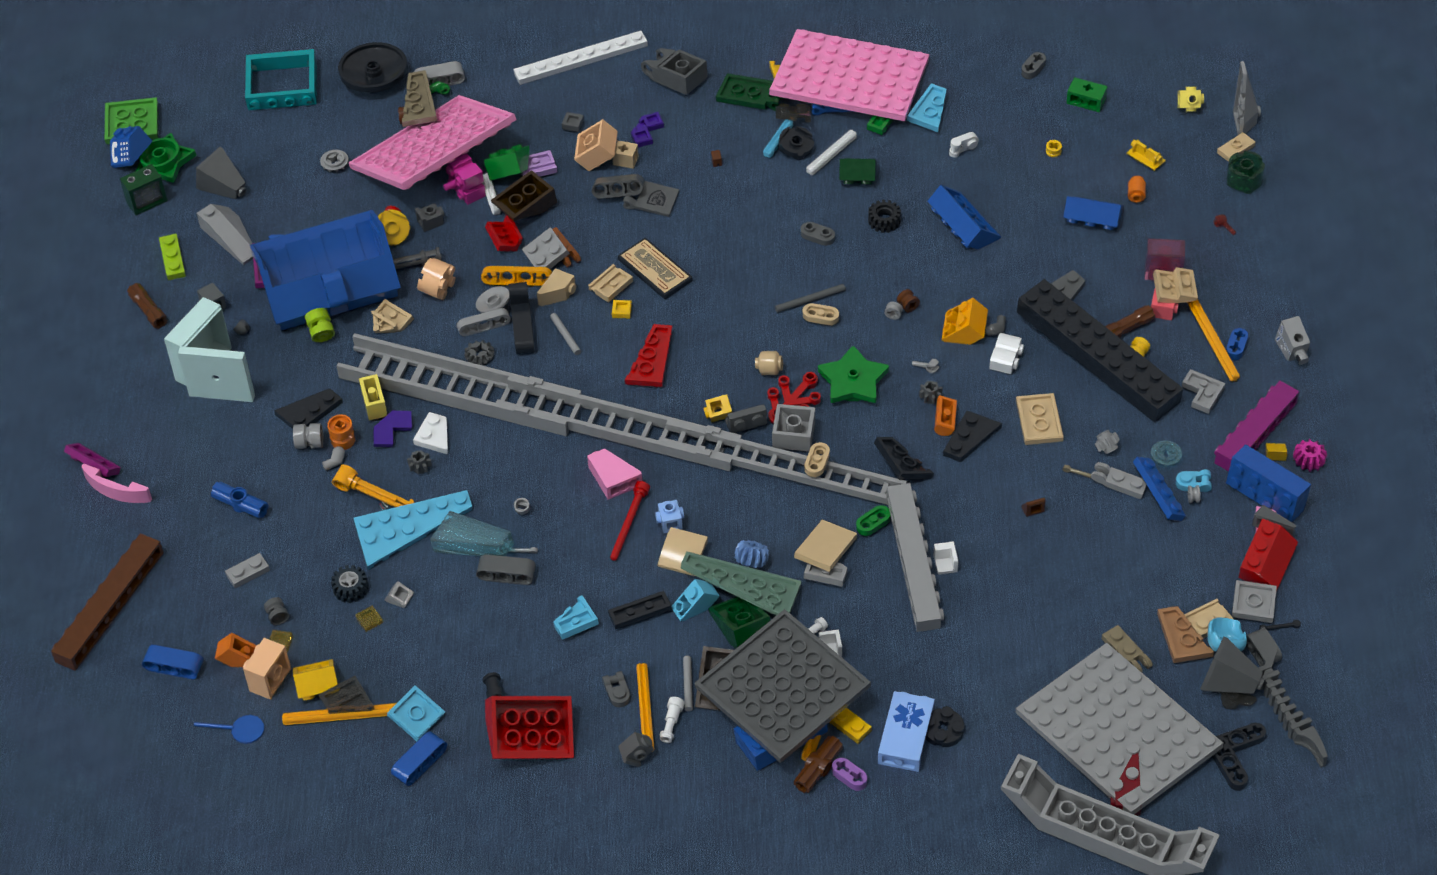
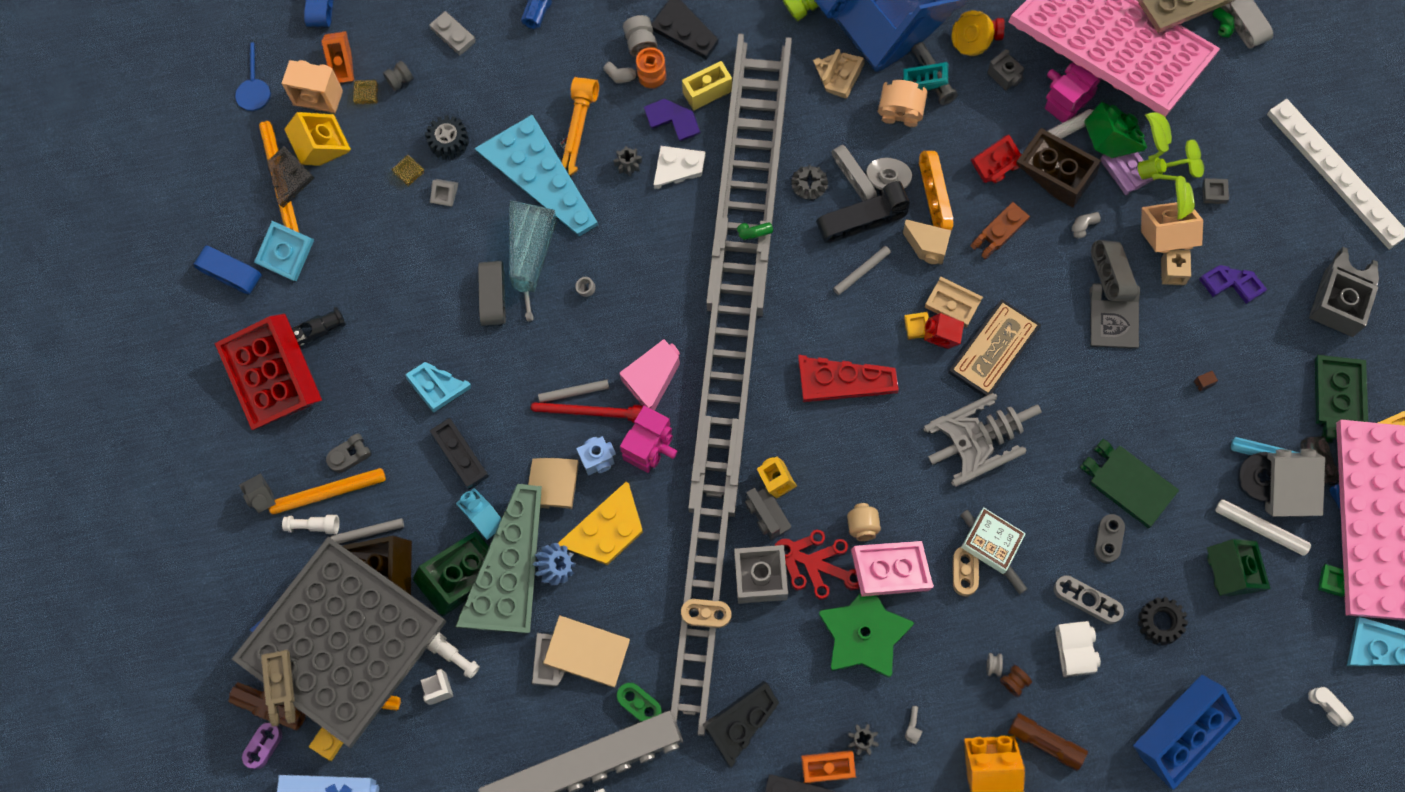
camera: 80 degrees right, 20 degrees up
(413, 260) = (911, 74): none -> teal slope
(519, 378) = (755, 231): none -> green arm
(546, 142) = (1155, 167): none -> lime plant
(546, 250) = (983, 213): light grey plate -> none
(571, 199) = (1082, 222): none -> light grey arm
(608, 529) = (573, 391): none -> light grey bar
(634, 289) = (943, 331): none -> red brick
(668, 478) = (646, 439): none -> dark pink brick
(722, 289) = (974, 440): none -> light grey bar
(728, 522) = (607, 528): none -> yellow wing
(779, 214) = (1129, 483): none -> dark green tile
(803, 293) = (993, 540): none -> tile
(808, 121) = (1296, 483): none -> light grey panel
(809, 350) = (891, 568): none -> bright pink plate
(813, 720) = (278, 685): none -> dark tan hinge
(856, 260) = (1108, 601): none -> light grey beam
(893, 264) = (1077, 649): none -> white brick
(962, 285) = (1063, 750): none -> reddish brown axle

